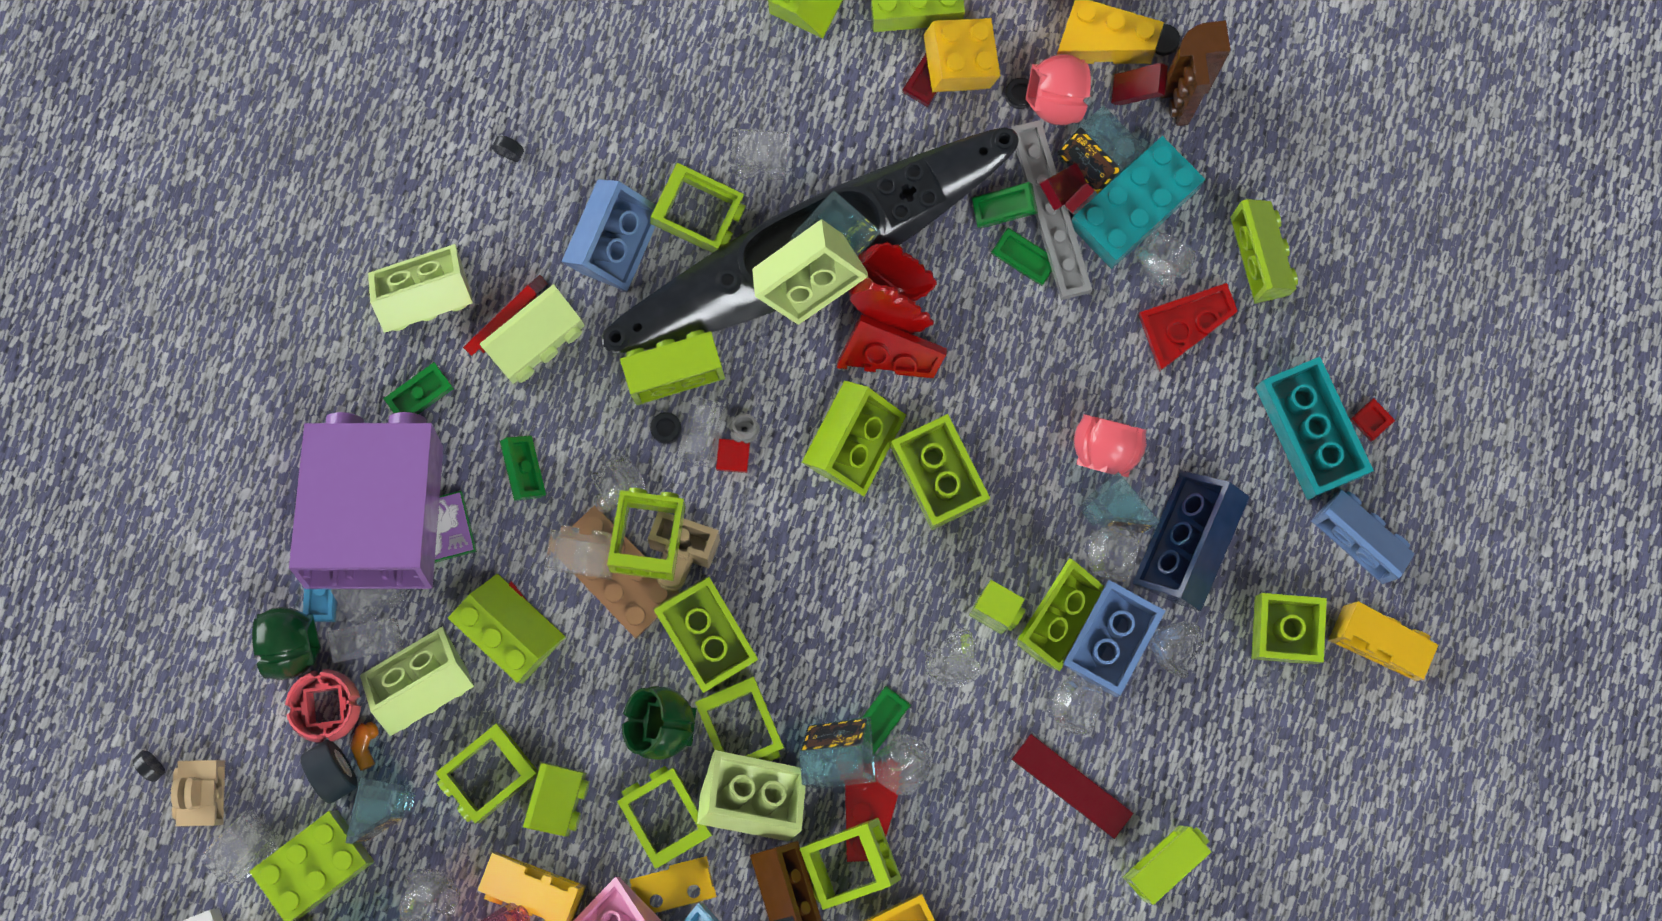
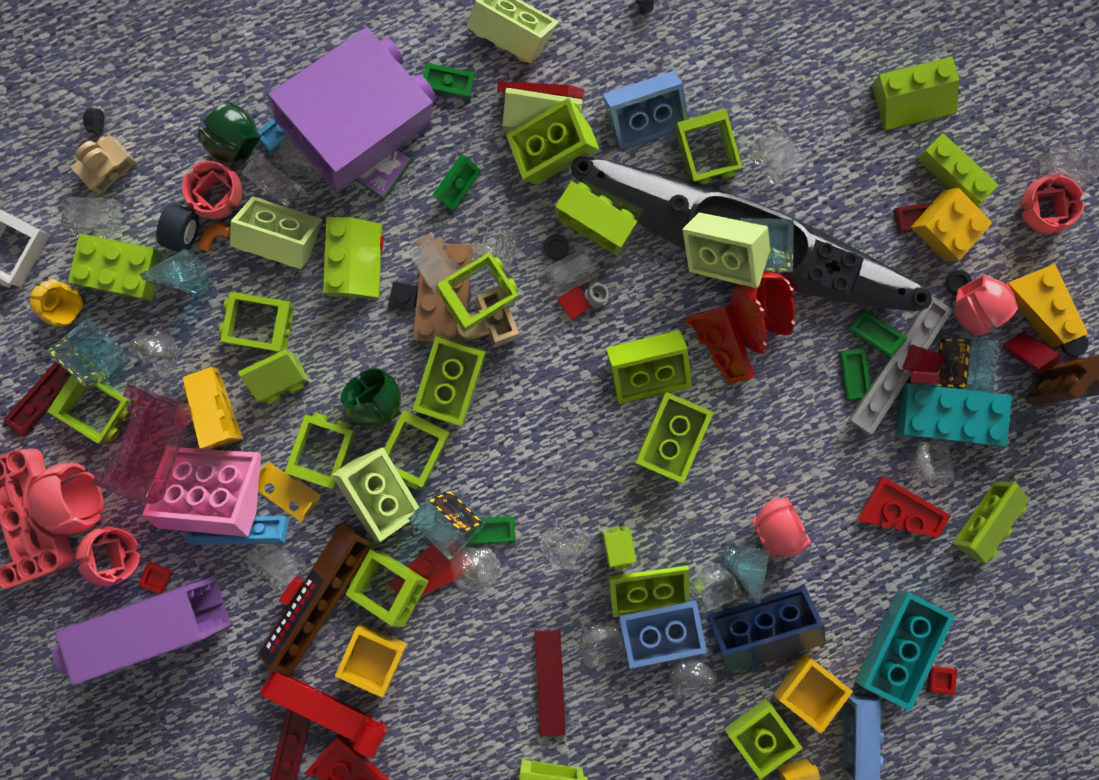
camera: 50 degrees right, 5 degrees up
(565, 346) = (551, 142): none -> lime slope
(585, 612) = (403, 296): none -> black plate
(1284, 546) = (812, 693): none -> yellow piece

